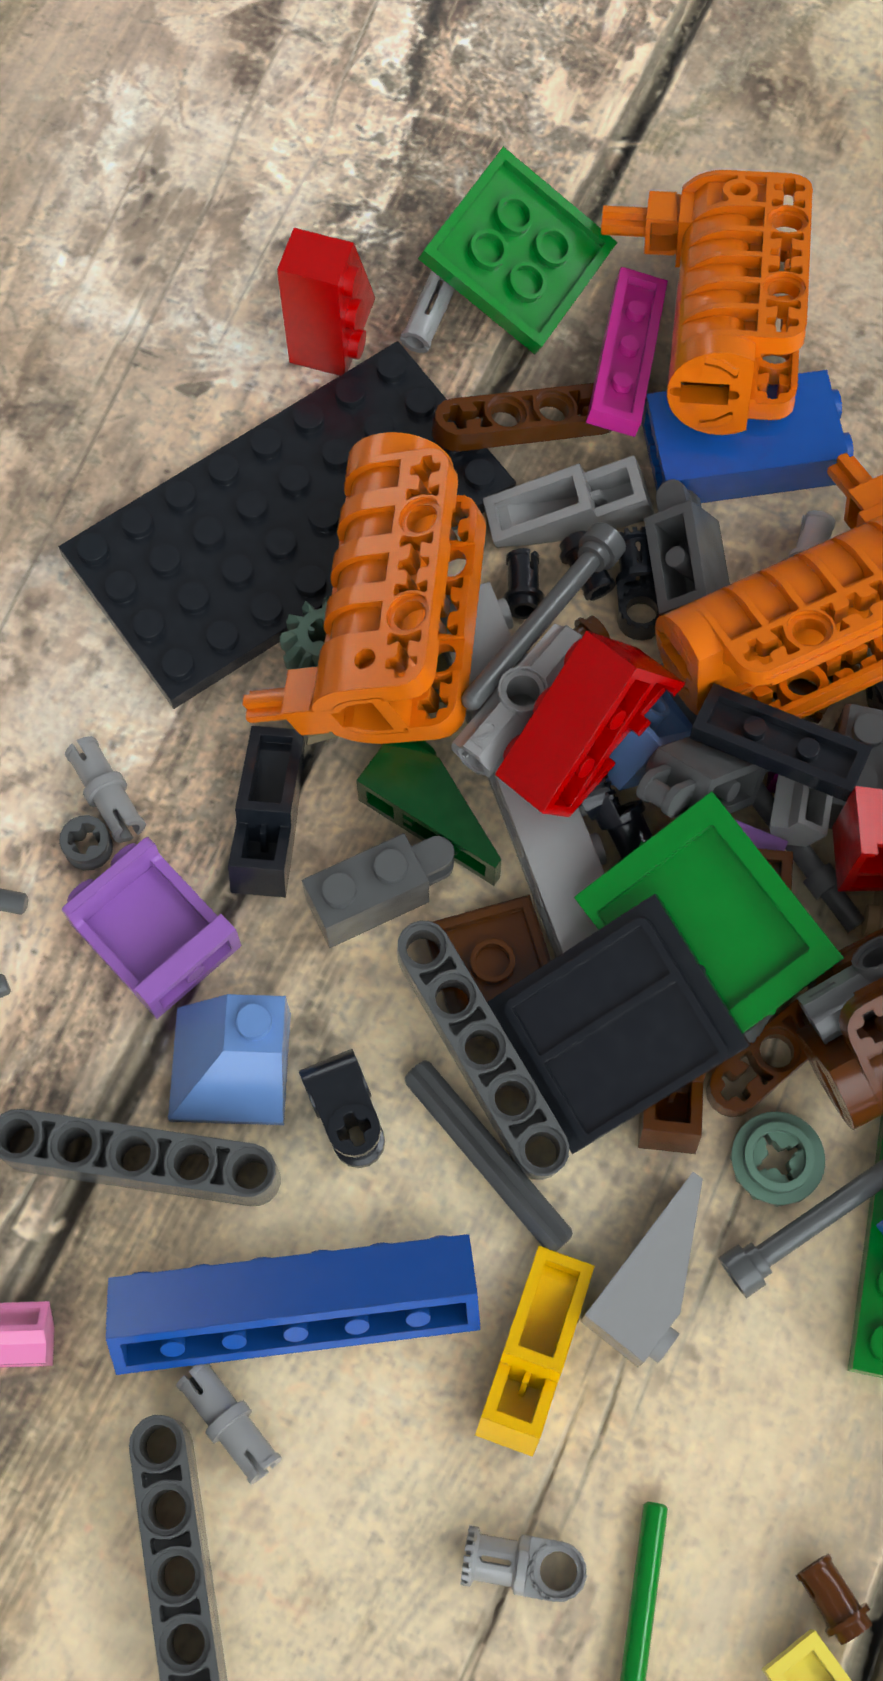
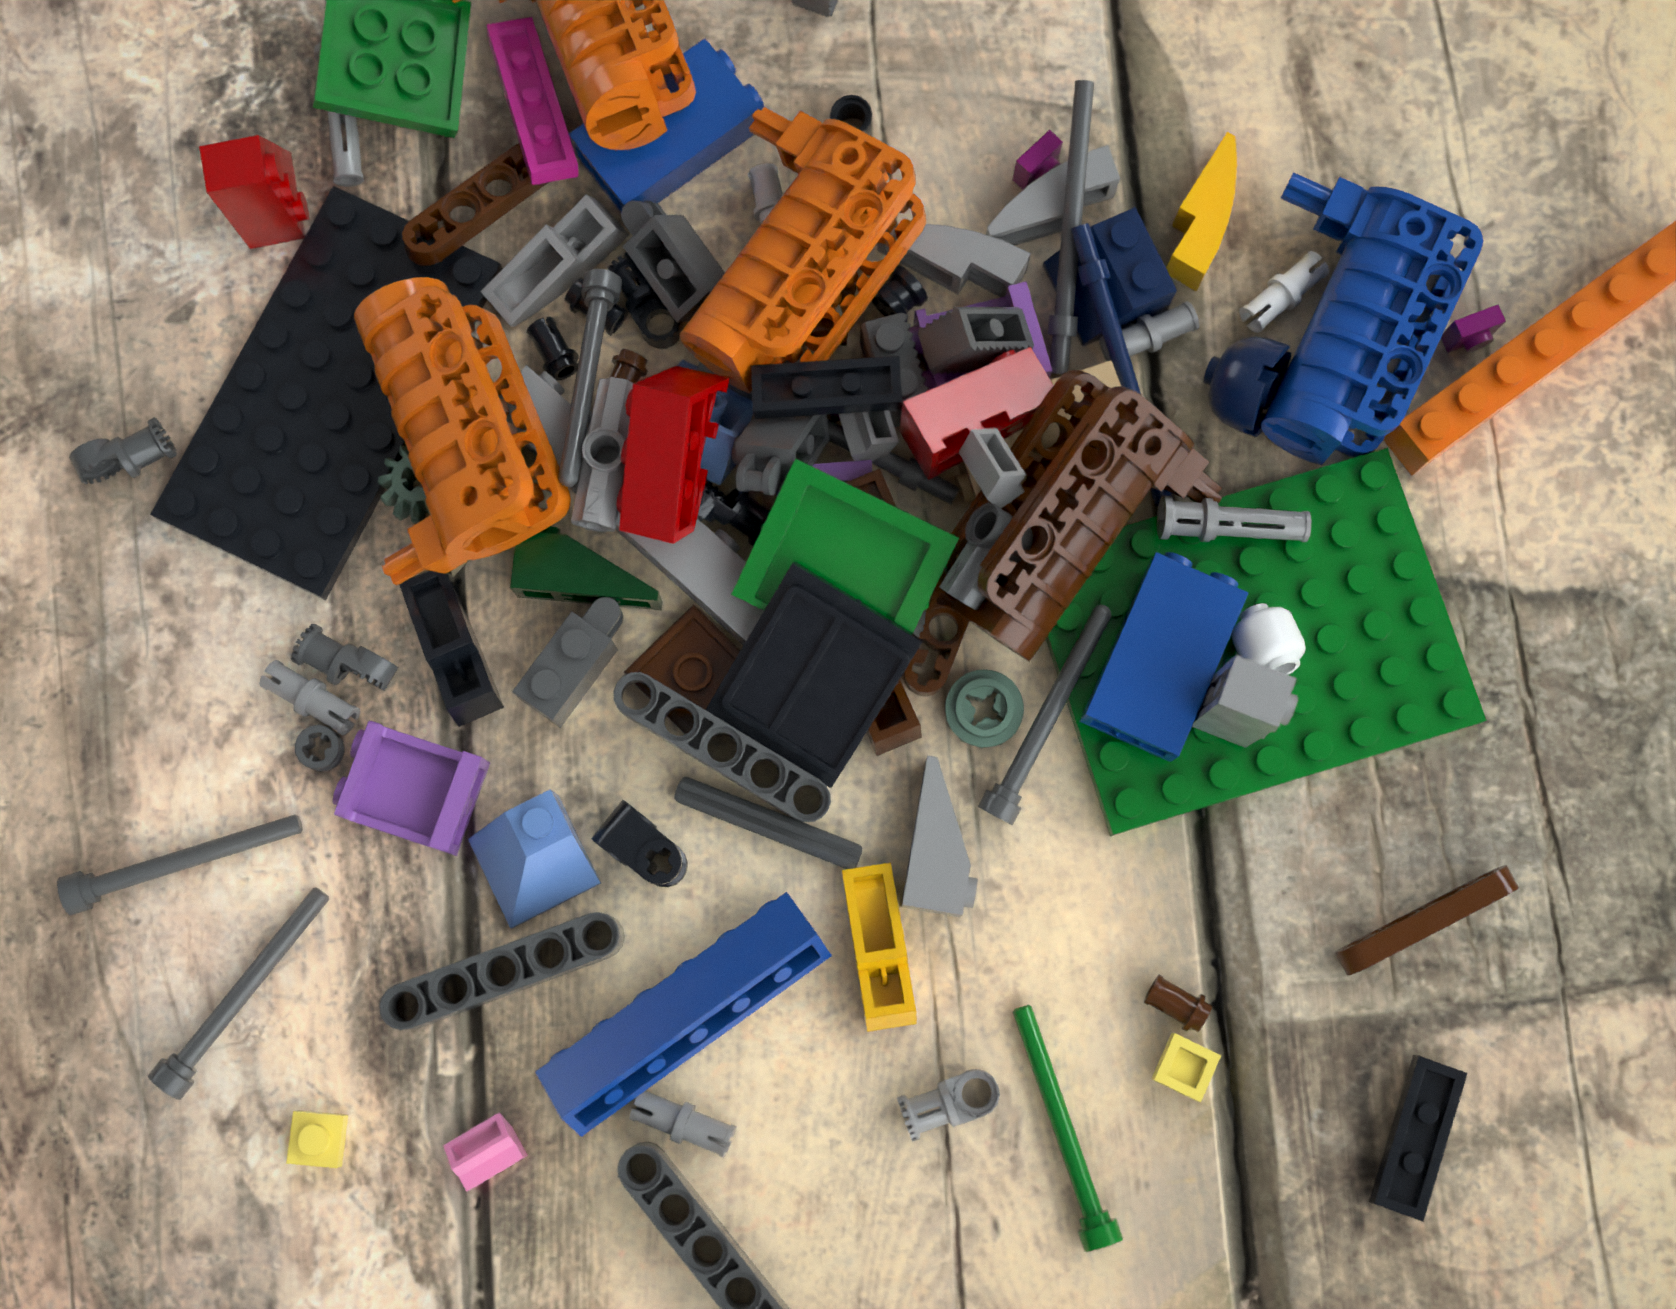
camera: 30 degrees left, 10 degrees up
(49, 477) = (133, 453): none -> dark grey connector
(155, 769) = (339, 660): none -> dark grey connector

